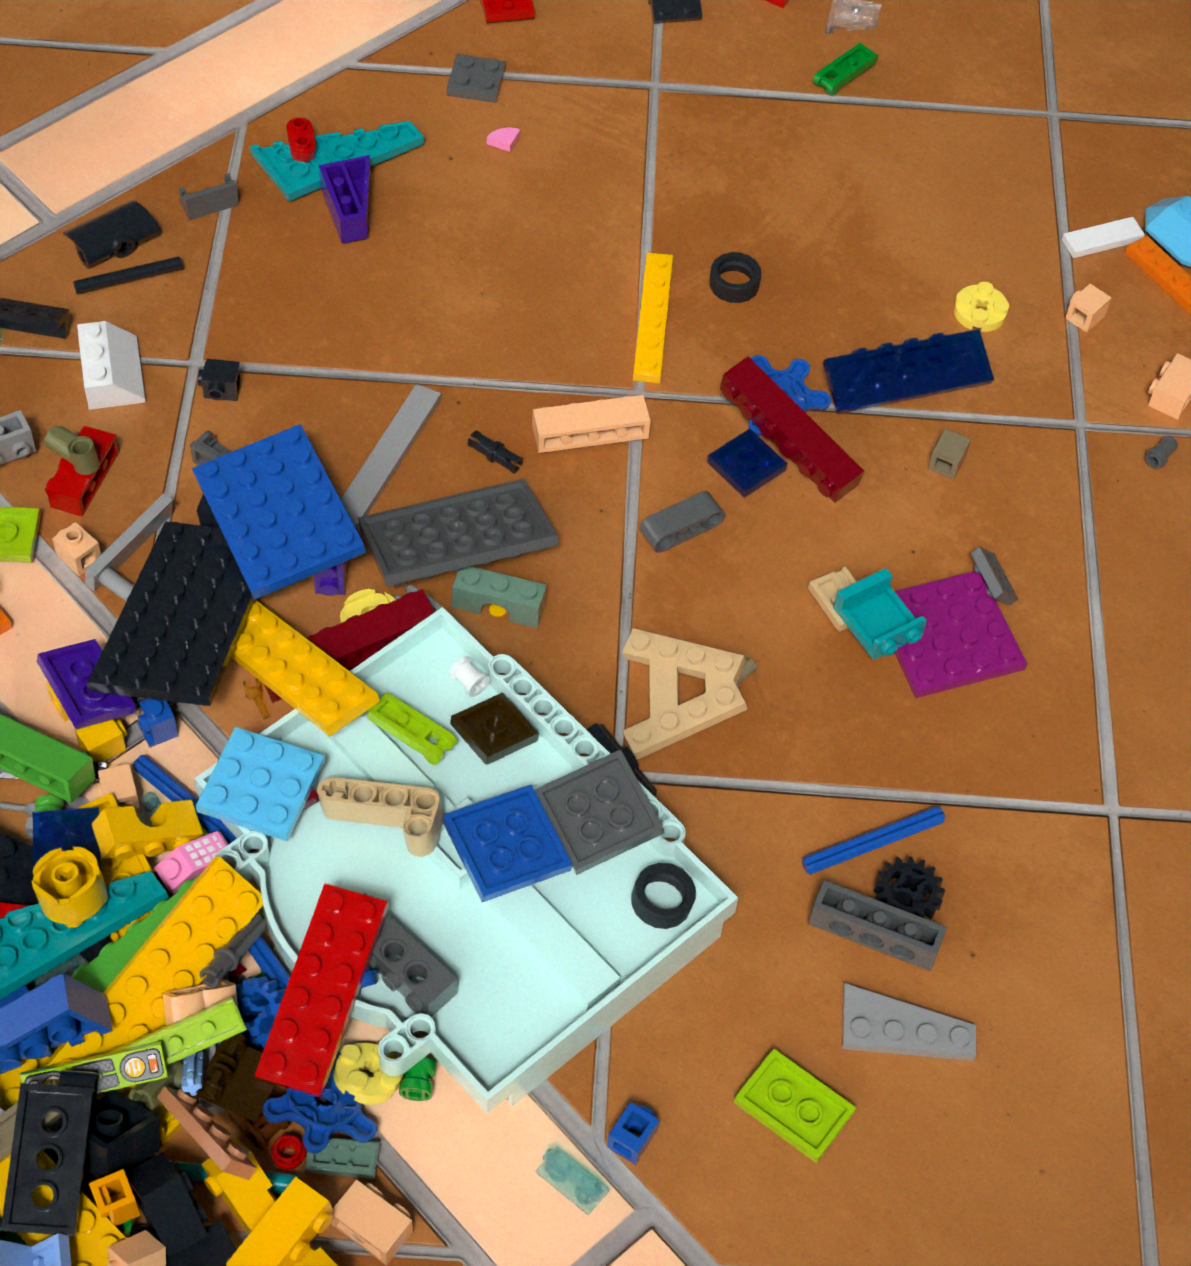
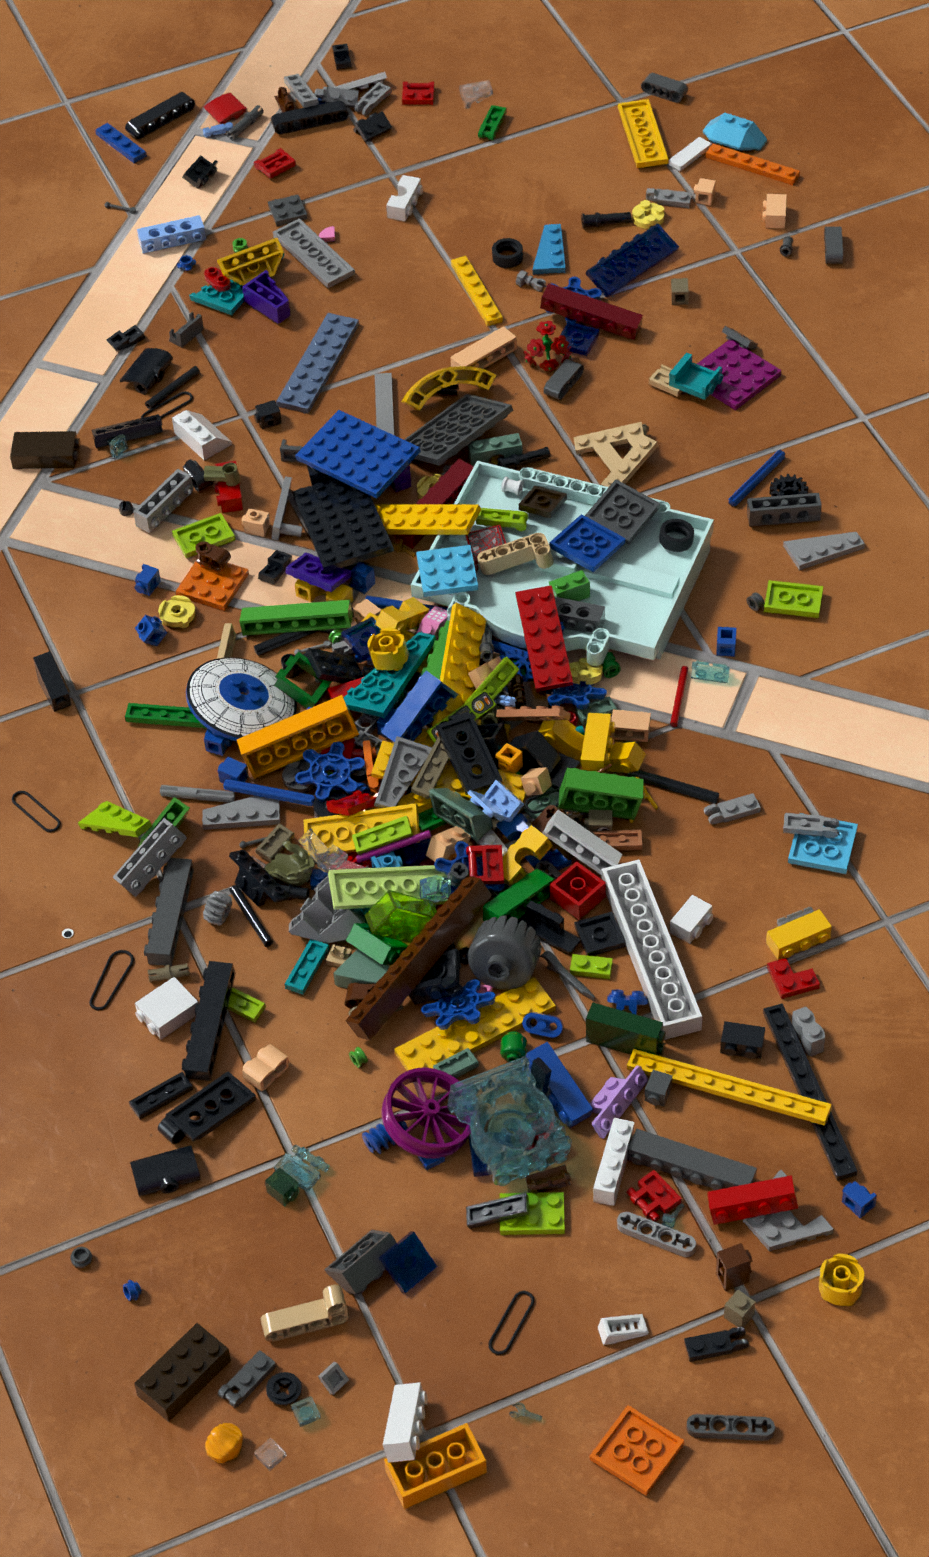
camera: 20 degrees left, 5 degrees down
(53, 414) = (195, 470): none -> black piece
(59, 632) = (275, 568): none -> black slope
(102, 294) = (191, 397): none -> black piece
(118, 174) = (127, 339): none -> black slope
(284, 96) = (186, 262): none -> blue plate
(293, 46) = (171, 234): none -> light blue brick
(351, 329) = (317, 363): none -> sand blue plate
(357, 134) = (251, 262): none -> yellow wedge
(360, 756) = (484, 539): none -> tile
(374, 108) = (239, 244): none -> bright green bush
(430, 911) = (572, 586): none -> bright green brick
(464, 158) = (313, 253): none -> light grey plate
(493, 1200) = (679, 696): none -> red bar
(500, 441) = (445, 377): none -> yellow brick
(518, 628) = (515, 460): none -> black pin
(659, 122) = (401, 206): none -> white arch
(696, 464) = (539, 345): none -> red plant
(728, 1078) = (755, 601): none -> dark grey bush
(732, 327) = (536, 283): none -> light grey piece
(800, 303) = (550, 251): none -> dark azure wing
(900, 282) = (598, 219): none -> black pin
(1030, 293) = (669, 197): none -> light grey hinge
(1051, 177) = (642, 133): none -> yellow plate
(1127, 119) = (664, 87): none -> dark grey beam

